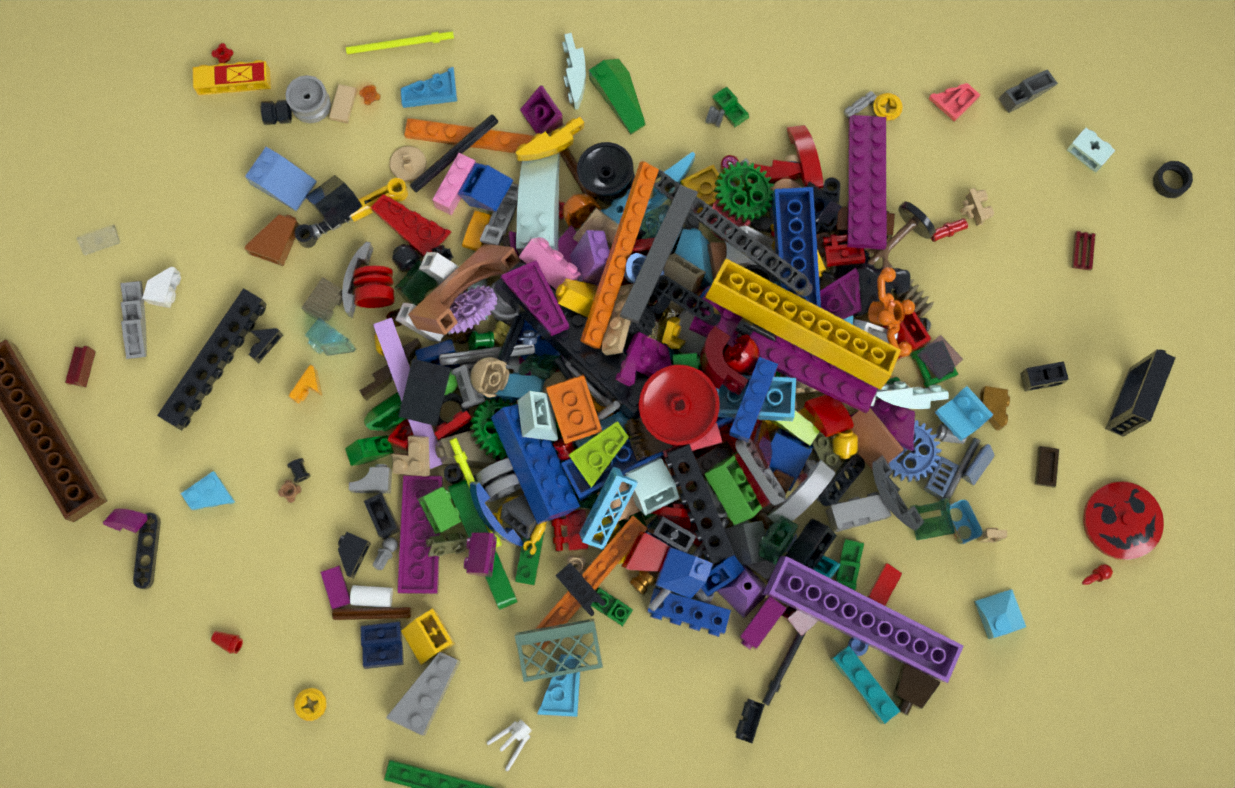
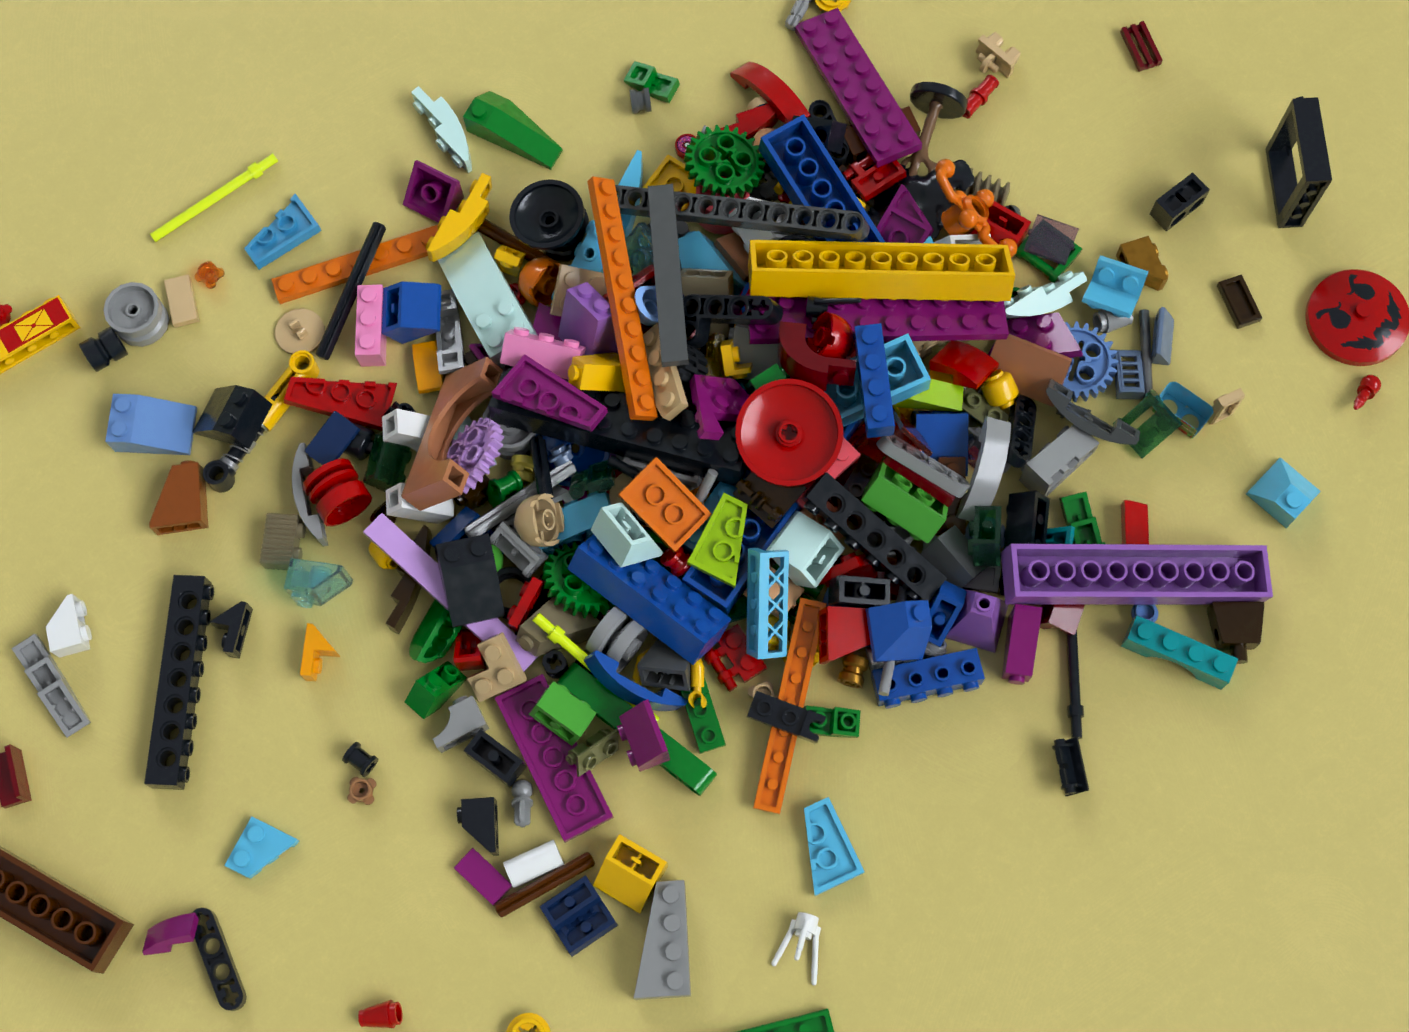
camera: 25 degrees left, 5 degrees down
(388, 249) = (332, 439): none -> dark blue slope
(558, 632) = (784, 784): sand green fence -> none
(568, 184) = (509, 260): none -> yellow bracket

